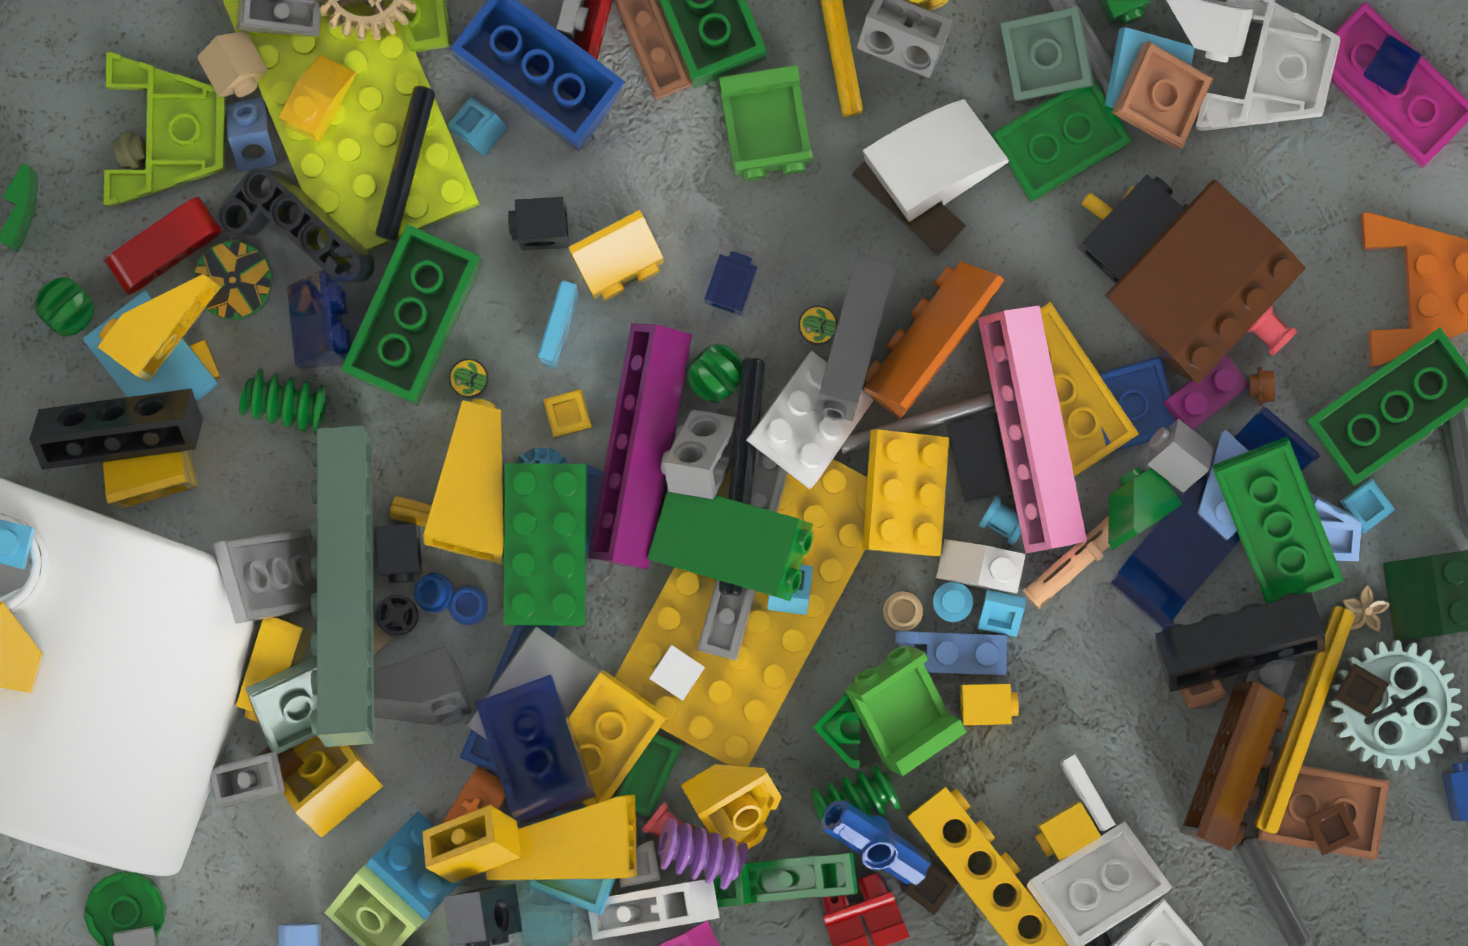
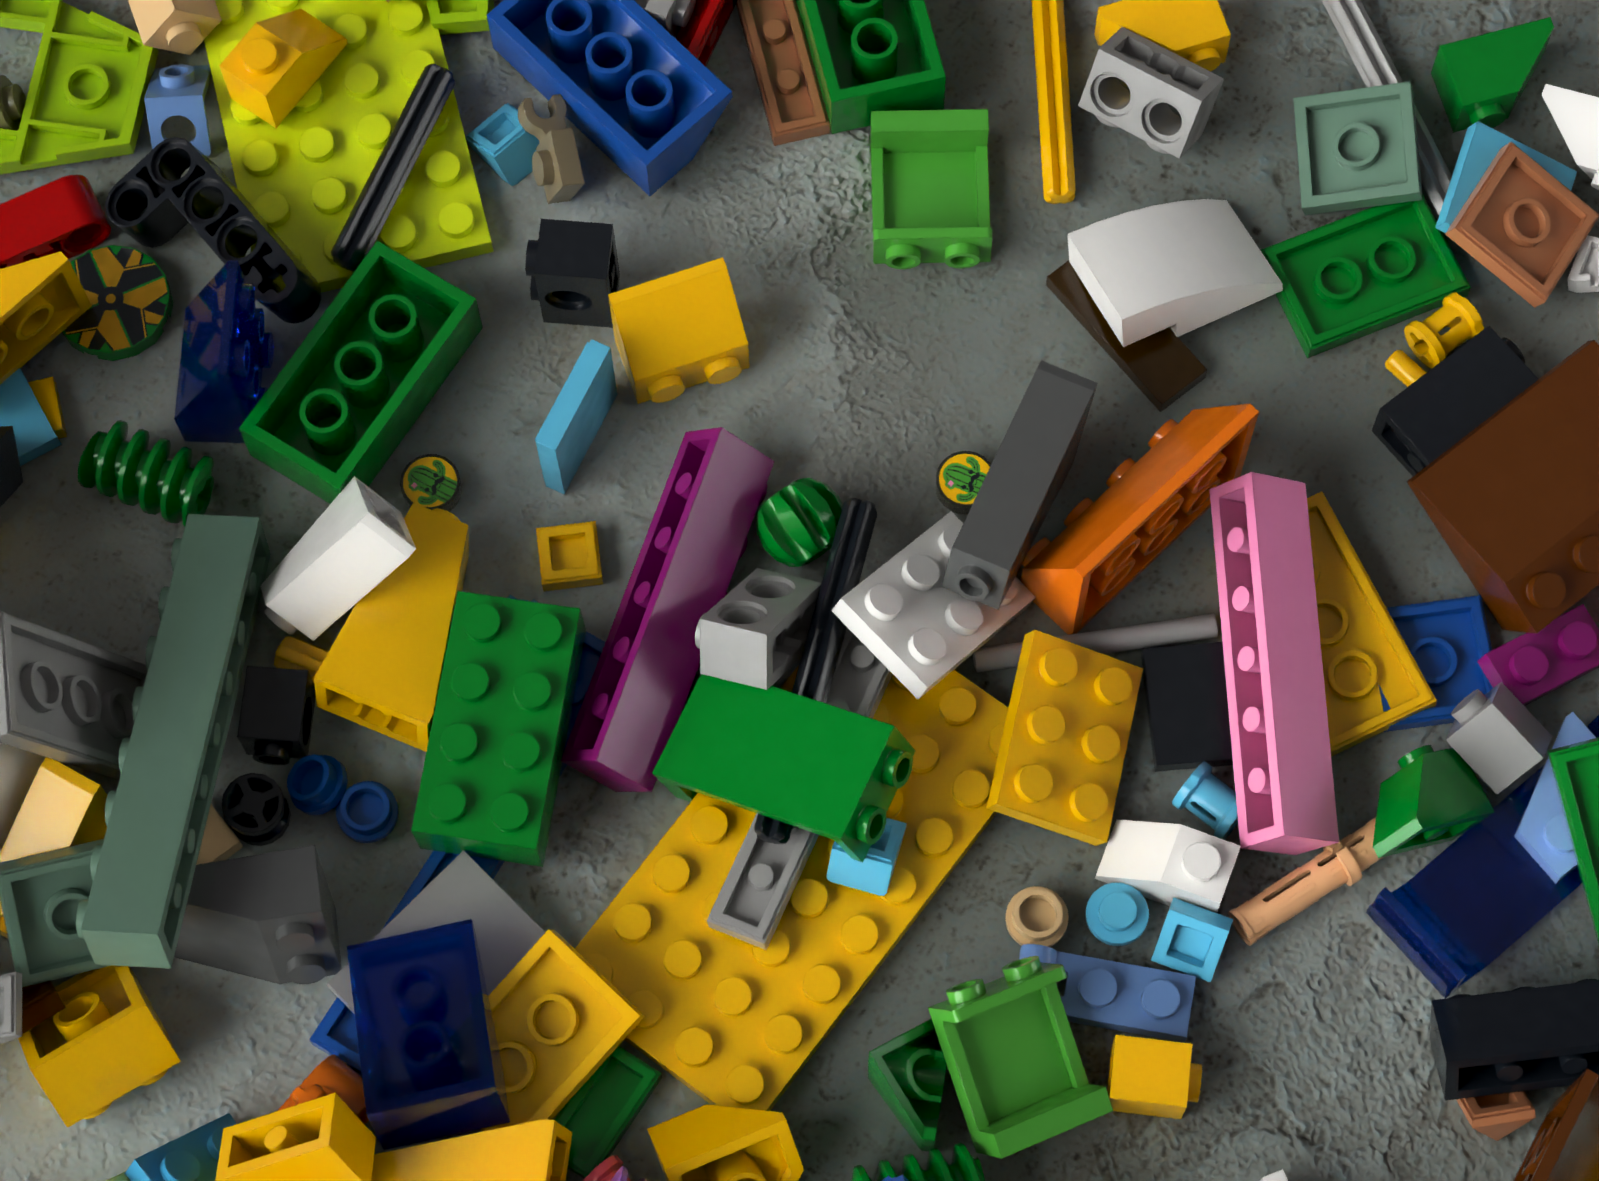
camera: 10 degrees right, 15 degrees down
(422, 448) = (337, 561): none -> white slope
(512, 138) = (556, 157): none -> dark tan plate
(677, 672) = (669, 952): white tile -> none
(731, 283) = (844, 402): clear blue brick -> none
(1118, 175) = (1457, 315): none -> yellow bush

